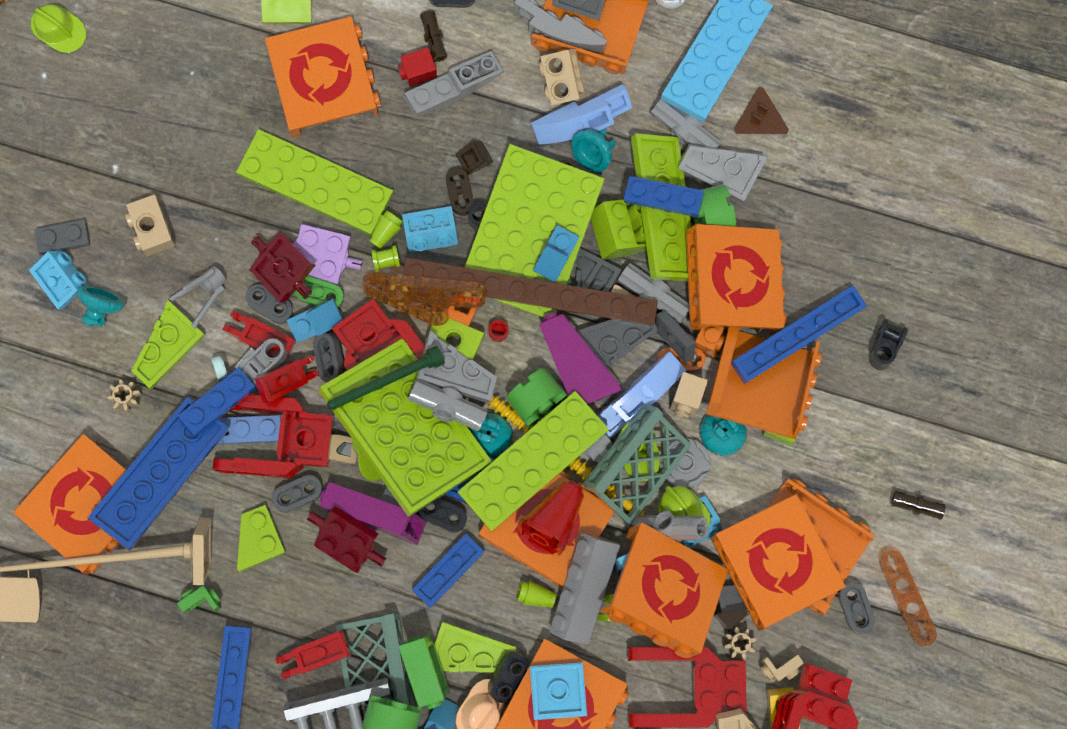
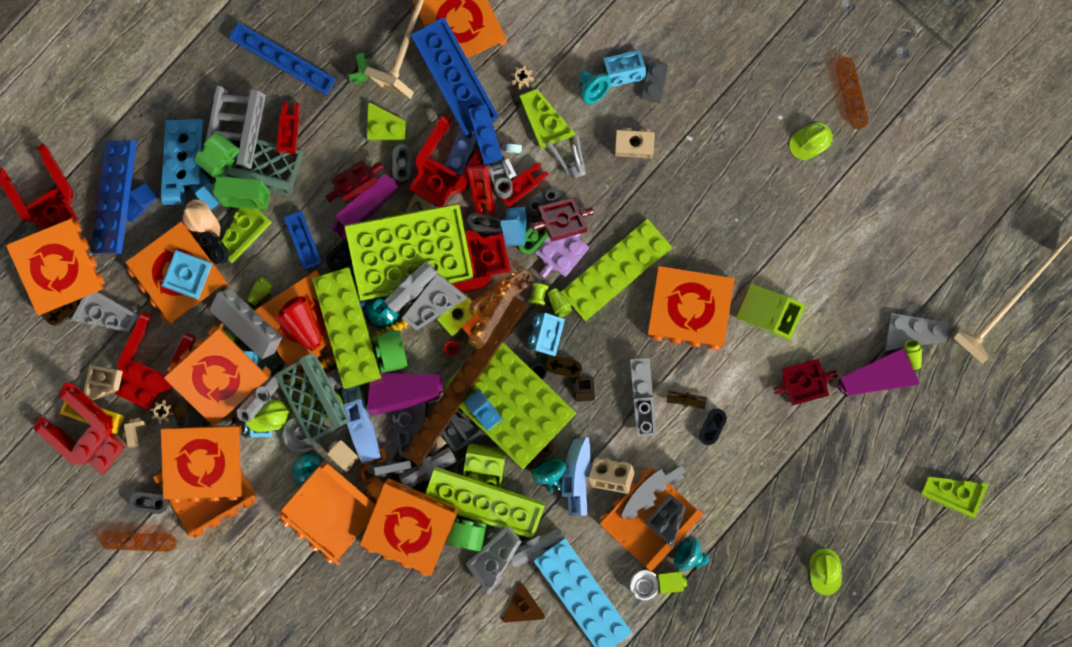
camera: 120 degrees right, 5 degrees up
(417, 67) = (667, 377): red brick -> none
(432, 358) = (445, 288): dark green piece -> none
(664, 196) = (487, 501): blue plate -> none
(798, 334) = (351, 554): blue plate -> none
(889, 341) = (317, 615): black piece -> none
(918, 505) = (197, 580): dark brown pin -> none

